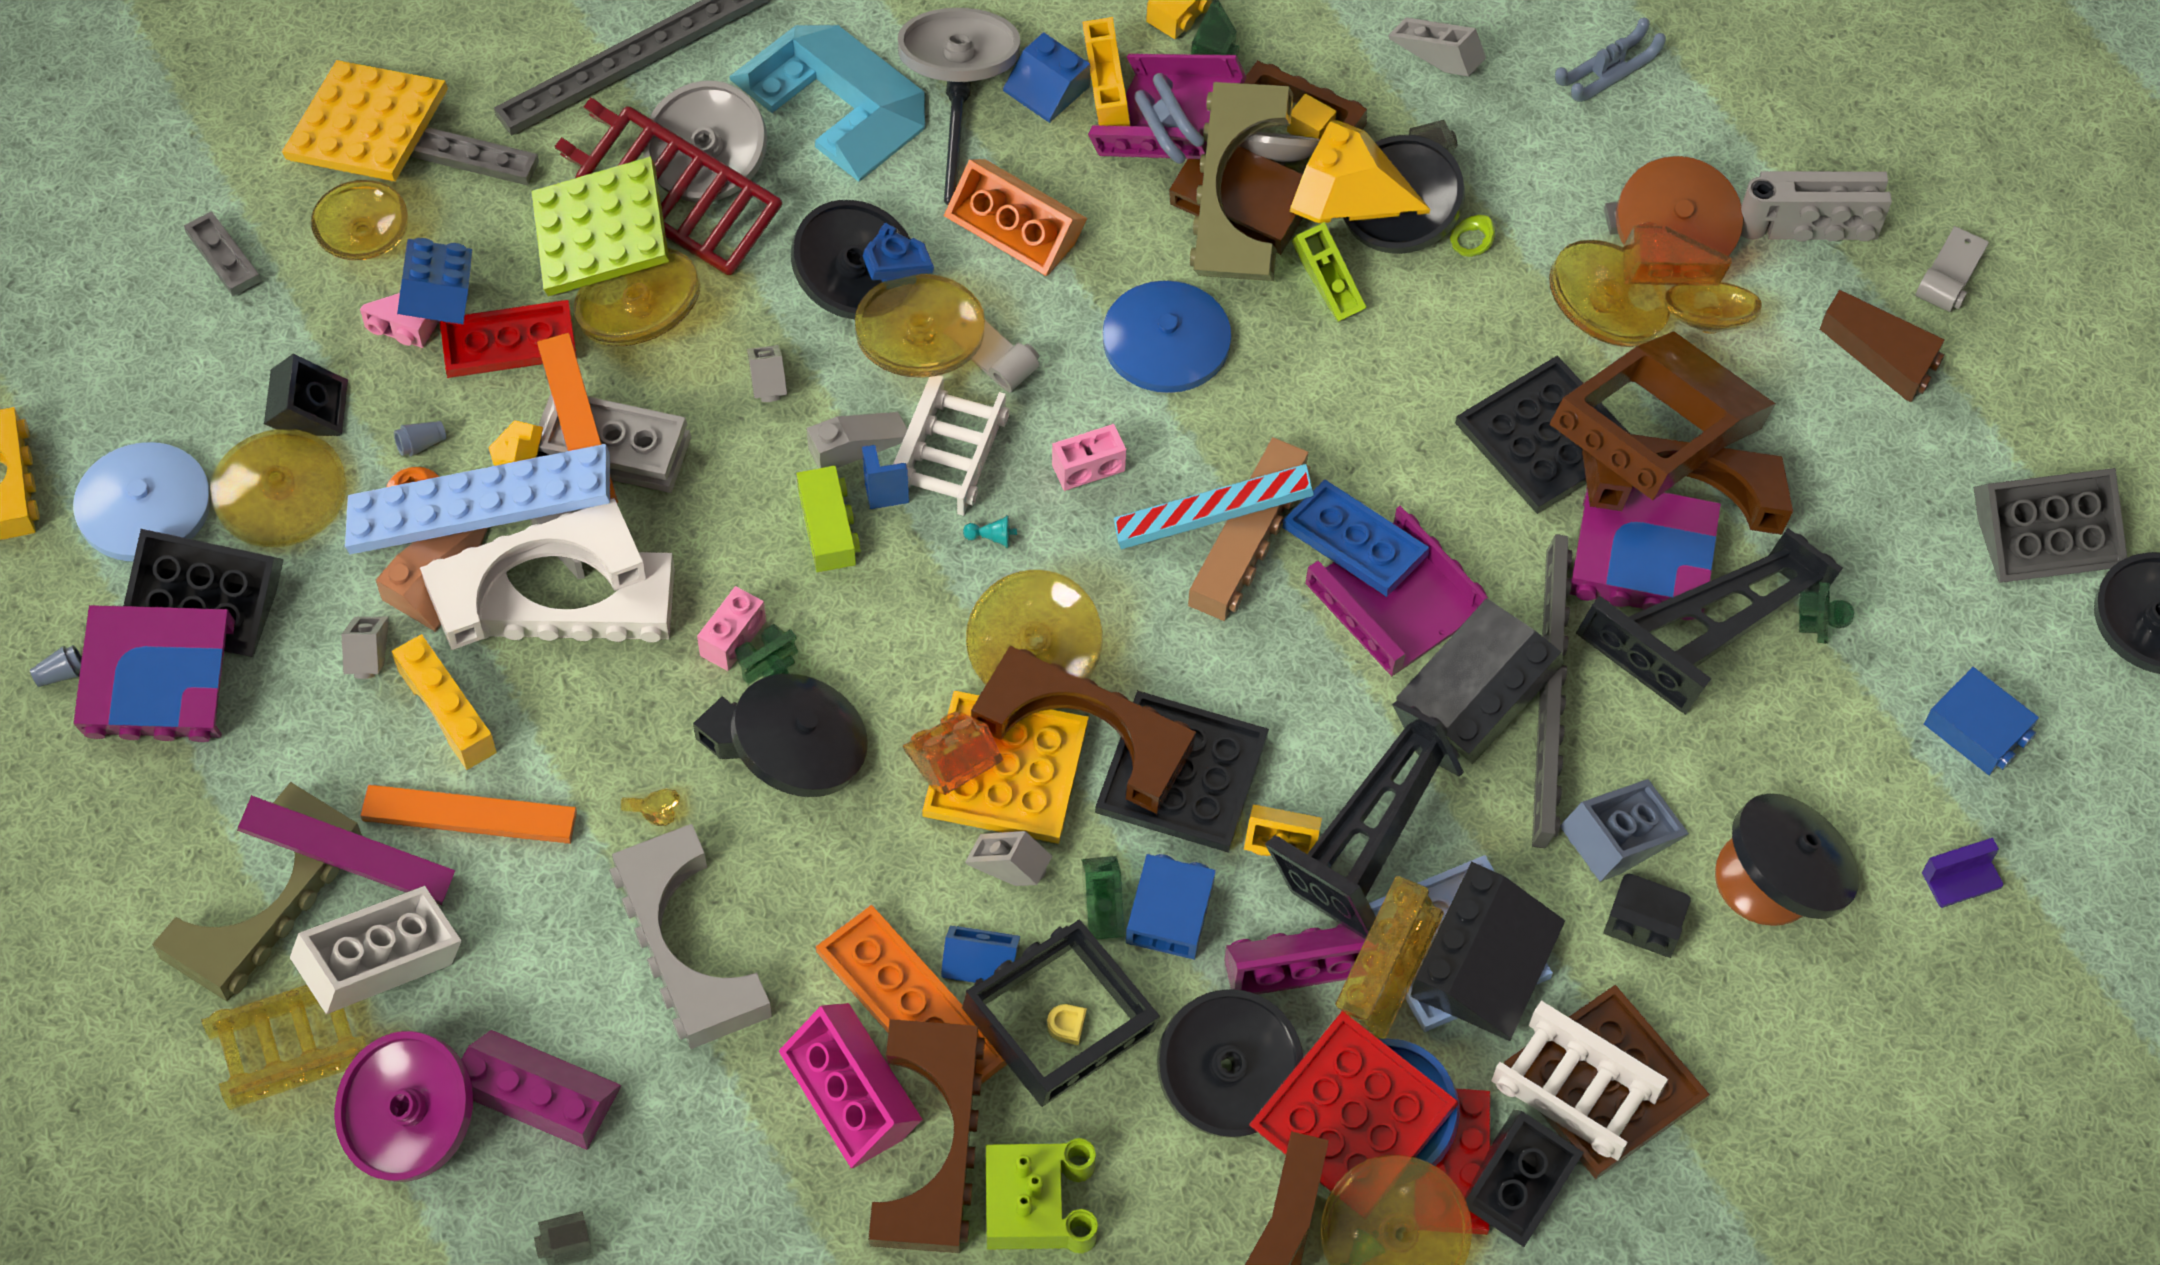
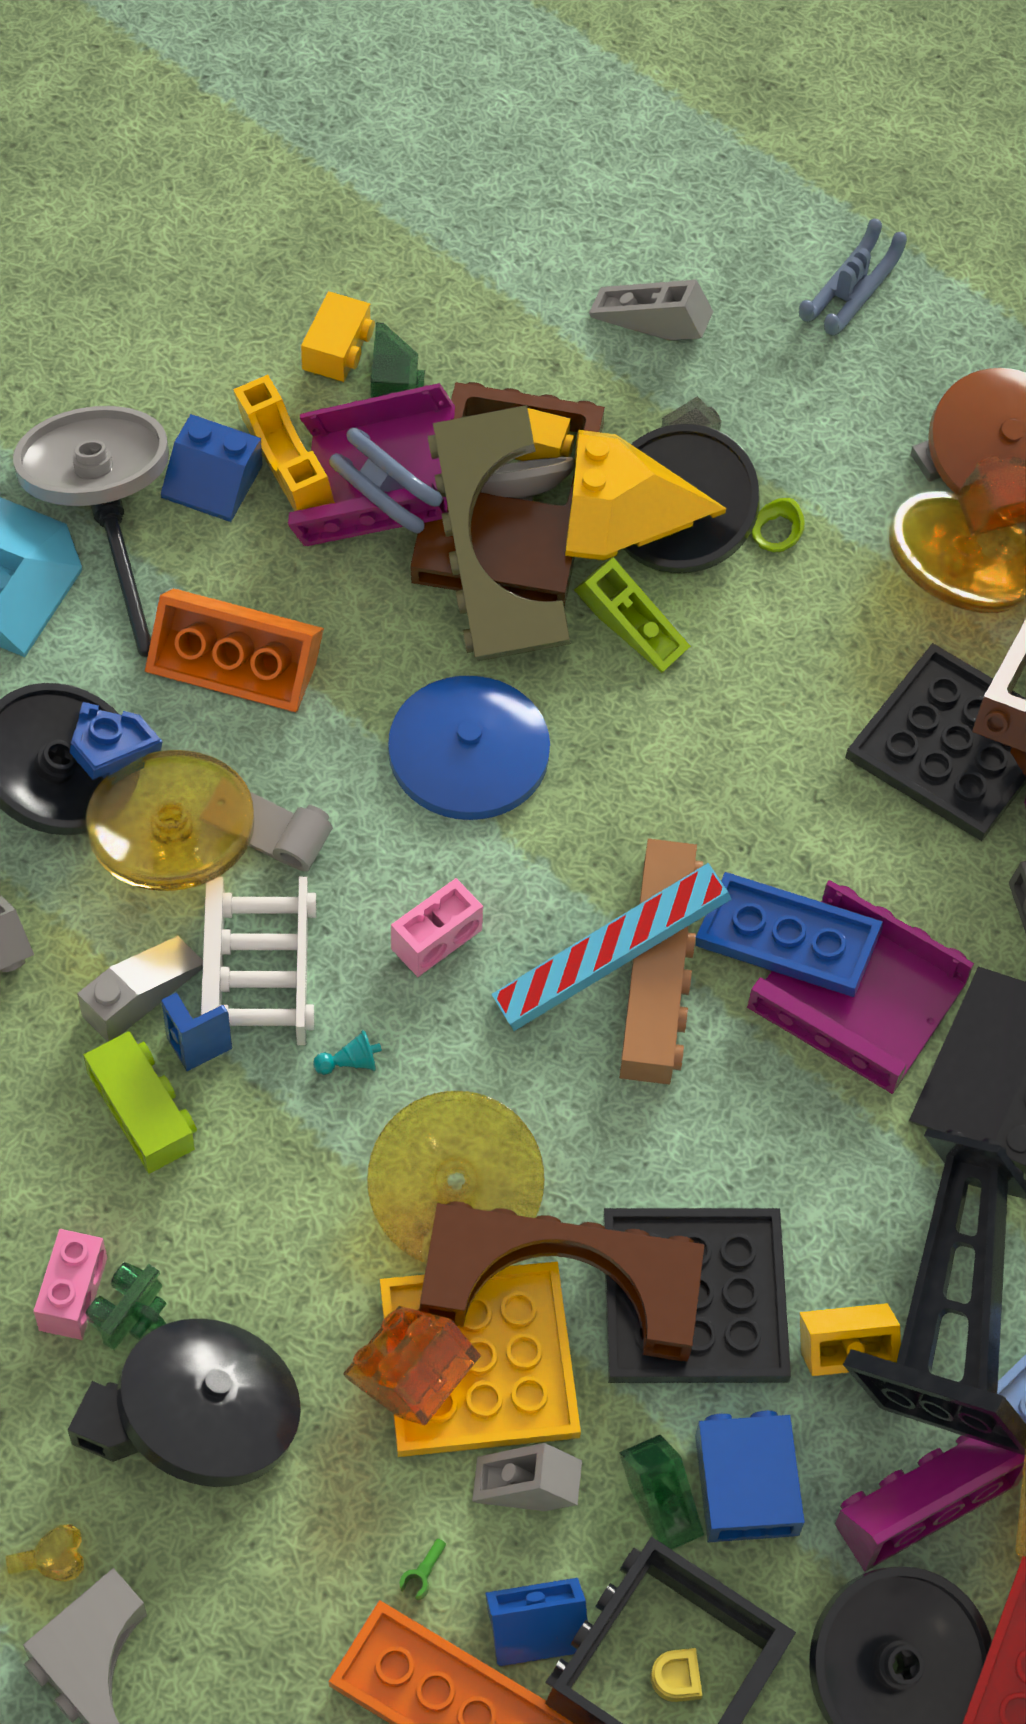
camera: 20 degrees left, 0 degrees up
(910, 898) = (424, 1569): none -> bright green hand

